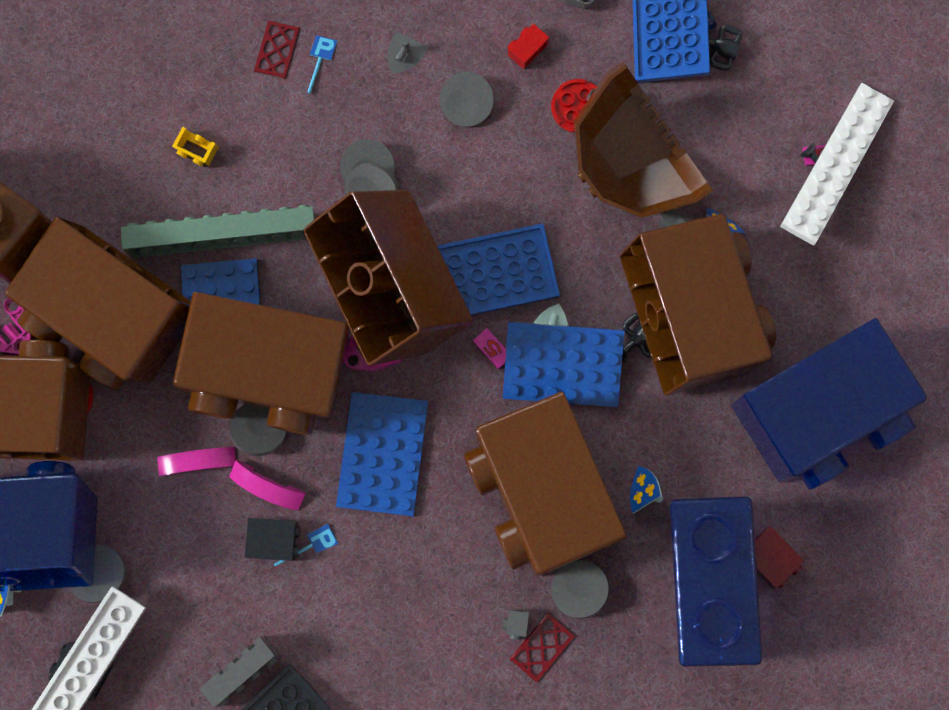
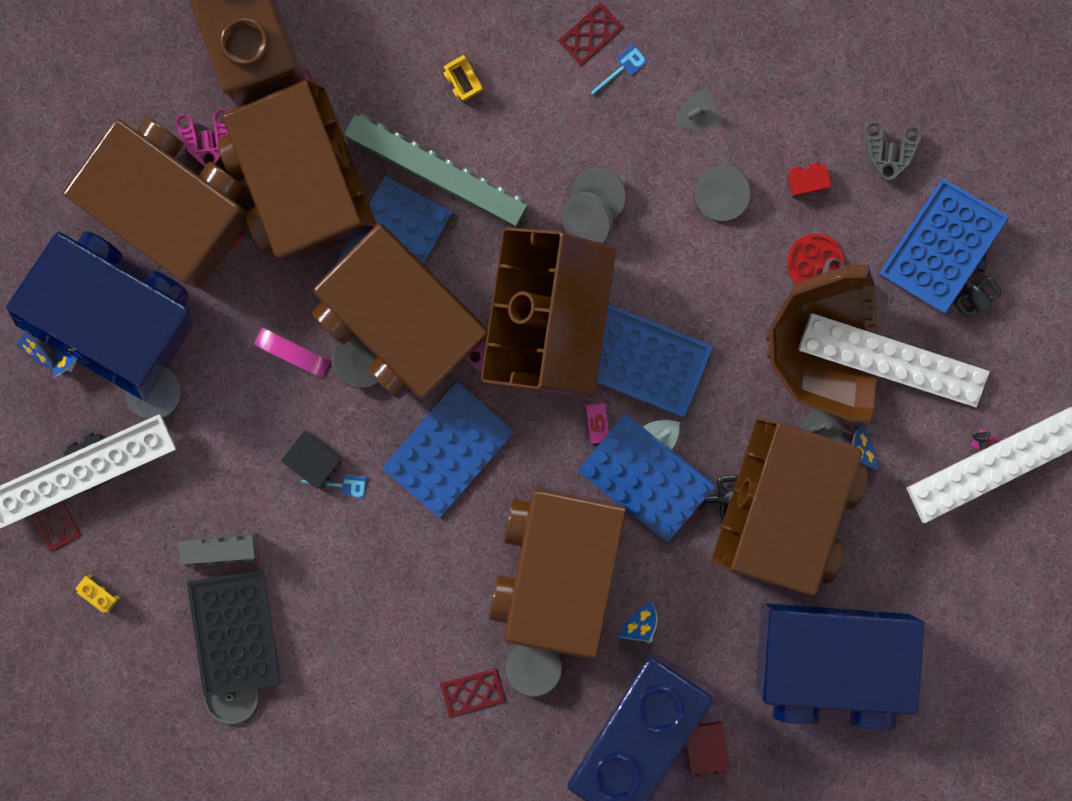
camera: 35 degrees right, 10 degrees up
(266, 488) = (333, 413): dark pink slope -> none
(516, 624) = (463, 661): dark grey brick -> none
(694, 137) = (893, 360): none -> white plate

